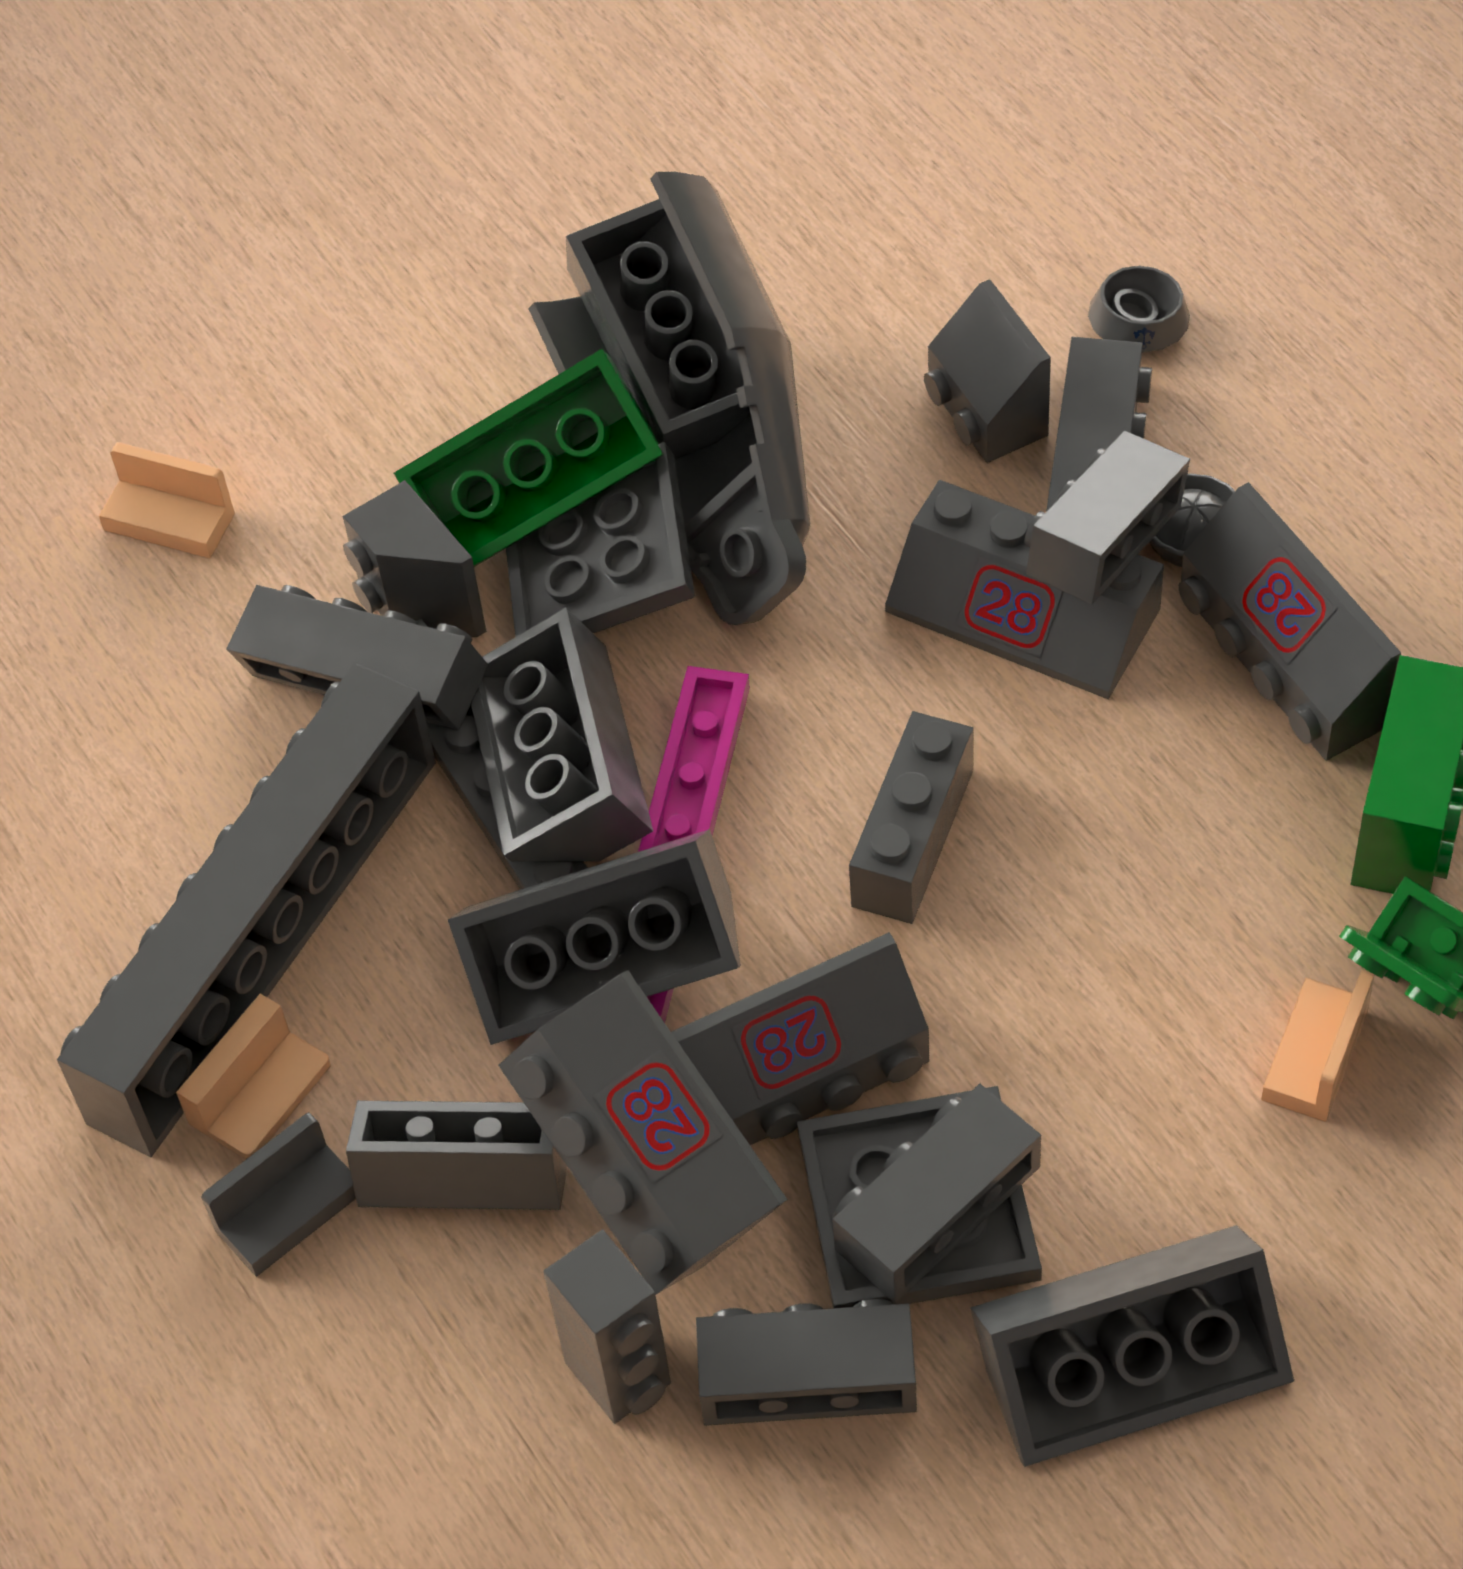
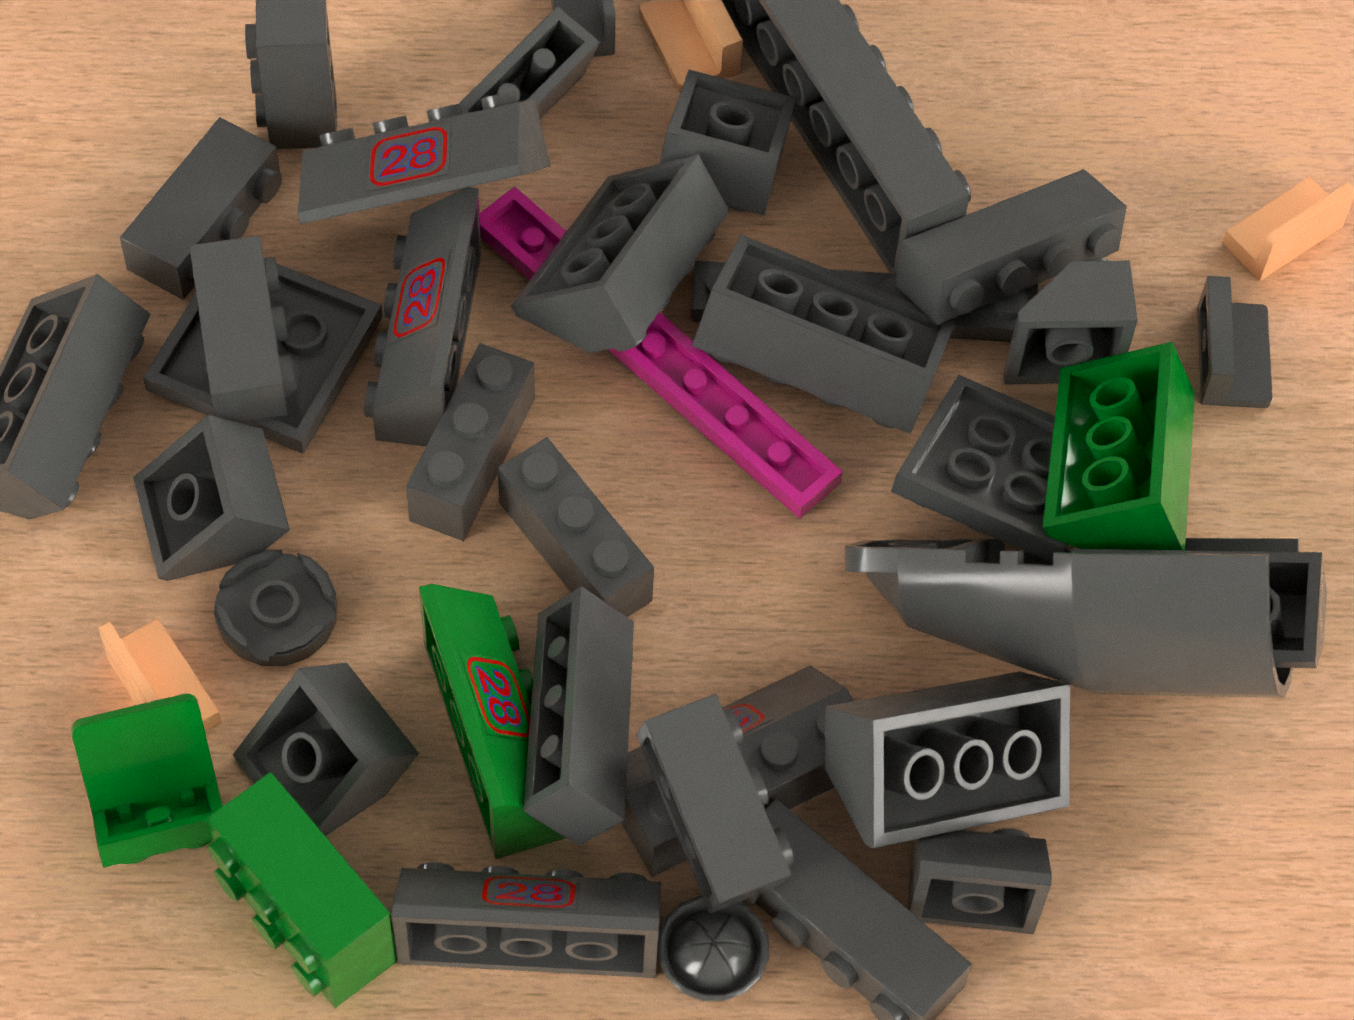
camera: 115 degrees right, 5 degrees up
(332, 487) = (1232, 349): none -> dark grey panel
(385, 948) = (734, 132): none -> dark grey slope
(915, 429) = (950, 756): none -> dark grey slope
(936, 934) = (471, 442): none -> dark grey brick
(1095, 678) = (580, 717): none -> dark grey brick
(1120, 1122) = (210, 499): none -> dark grey slope
(1142, 760) = (486, 708): none -> green slope
(1166, 1016) = (275, 608): none -> dark grey tile
(1271, 868) = (327, 745): none -> dark grey slope

